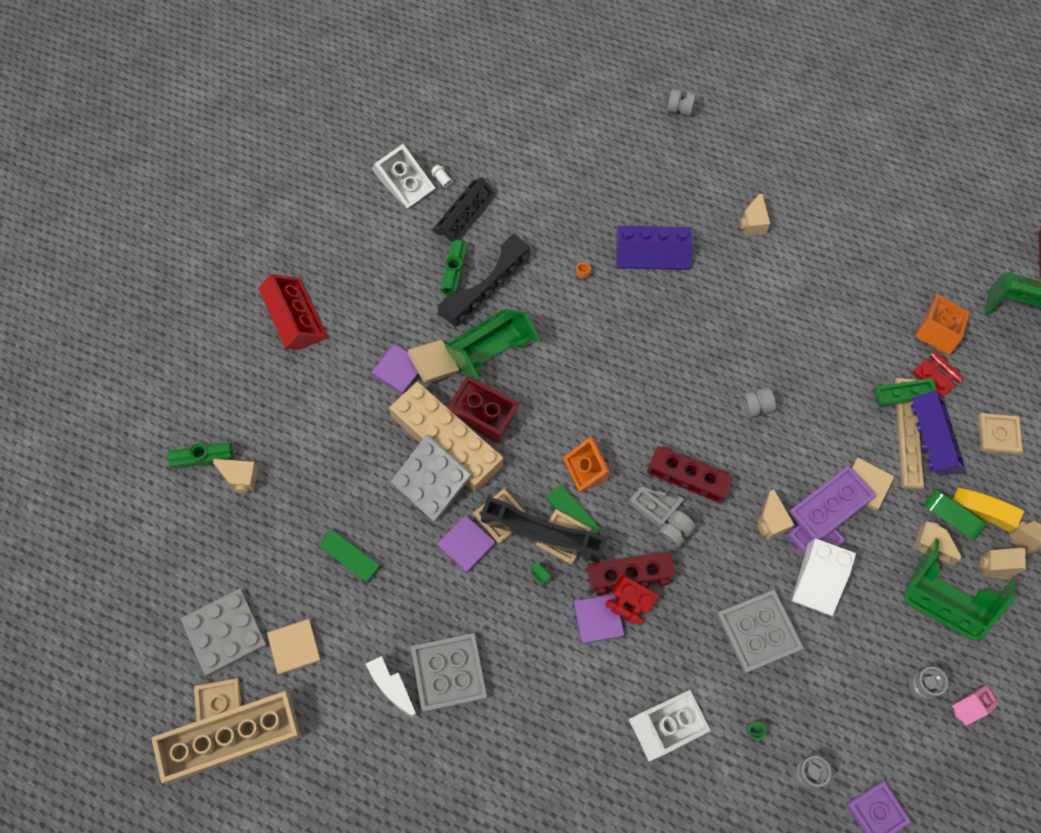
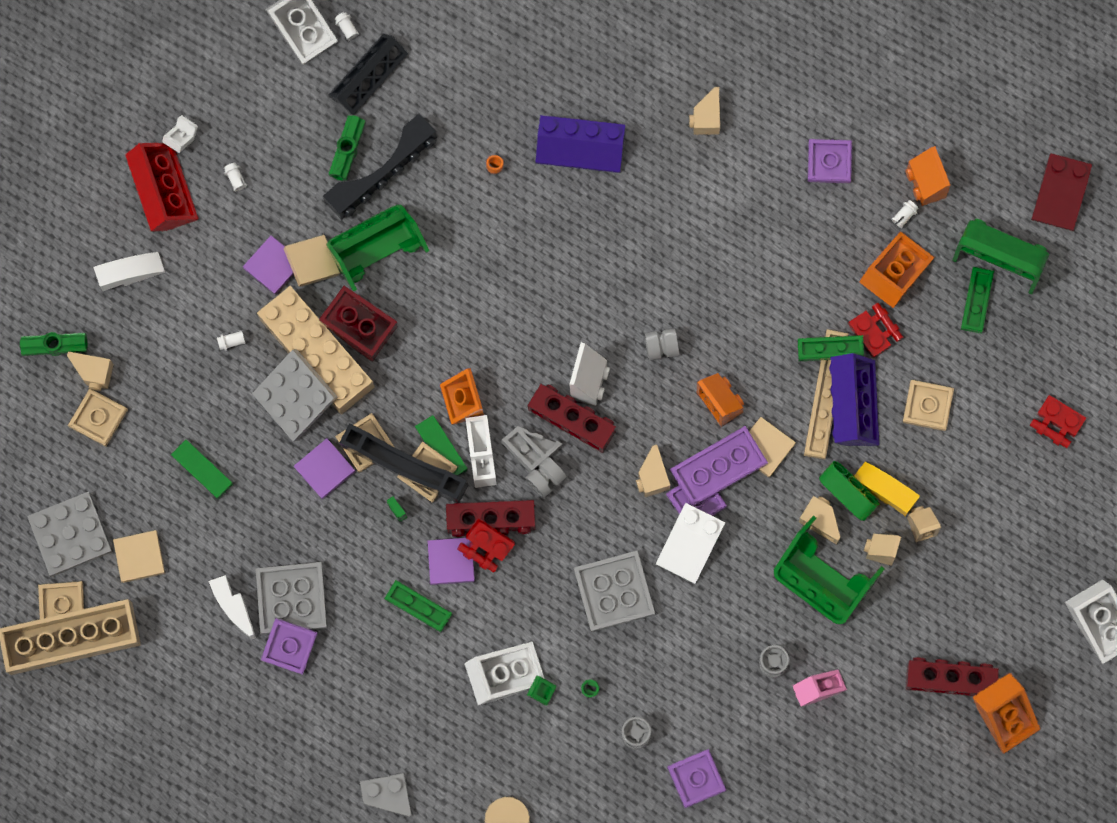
camera: 15 degrees right, 10 degrees up
(245, 518) = (97, 417): none -> tan tile
(266, 384) = (128, 270): none -> white slope
(307, 269) = (181, 134): none -> white bracket
(355, 295) = (235, 176): none -> white pin
(366, 436) = (230, 340): none -> white pin
(452, 721) = (289, 646): none -> medium lavender tile
(573, 666) = (418, 606): none -> green tile
(611, 513) = (481, 451): none -> white slope
(699, 434) = (588, 376): none -> white slope
(708, 738) = (541, 690): none -> green tile
(818, 445) = (719, 398): none -> orange slope
(863, 245) = (829, 161): none -> medium lavender tile
(939, 276) = (905, 213): none -> white pin
(953, 246) = (928, 177): none -> orange slope
(1016, 343) = (977, 300): none -> green tile

